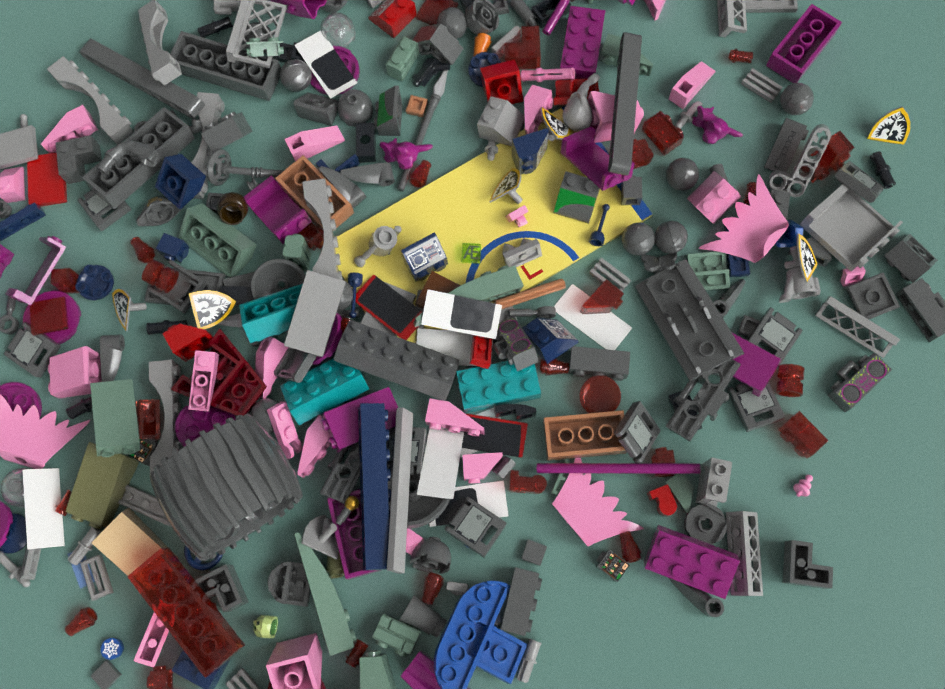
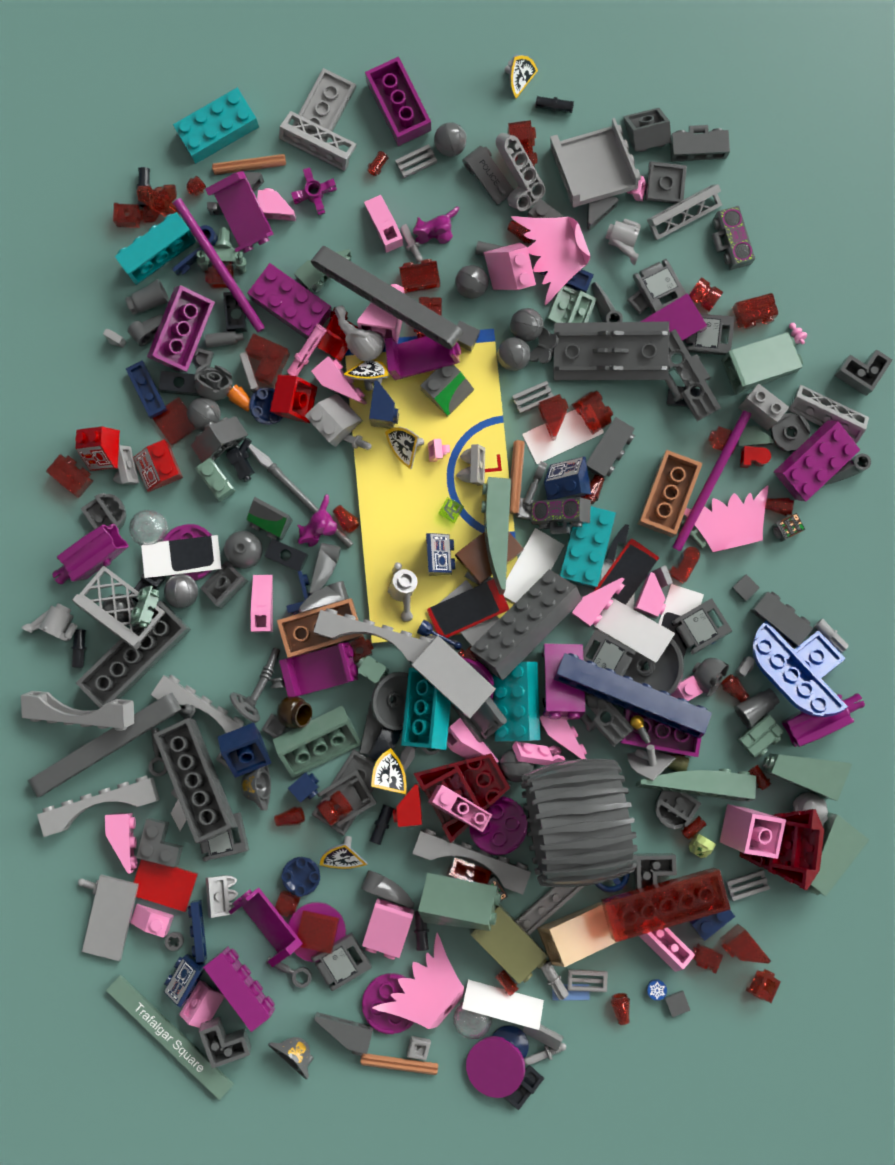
camera: 70 degrees left, 10 degrees up
(52, 225) = (219, 895): none -> light grey plate
(145, 154) = (204, 769): dark grey piece -> none
(228, 131) = (214, 681): dark grey brick -> none
(280, 610) = (693, 828): none -> clear red pin
(400, 491) = (646, 674): light grey tile -> none
(416, 106) = (270, 489): nougat tile -> none
(461, 314) = (514, 546): sticker -> none
(481, 351) = (543, 541): red tile -> none
(597, 237) = (493, 389): dark blue hinge -> none
(600, 394) = (639, 462): clear red piece -> none
(624, 333) = (593, 411): none -> clear red cylinder
(637, 431) = (689, 447): dark grey container -> none
(682, 16) = (328, 186): none -> magenta pin
(758, 463) = (761, 362): none -> slope
(789, 237) = (584, 218): blue panel -> none
(802, 257) = (607, 222): shield -> none
(859, 182) = (559, 131): dark grey container -> none

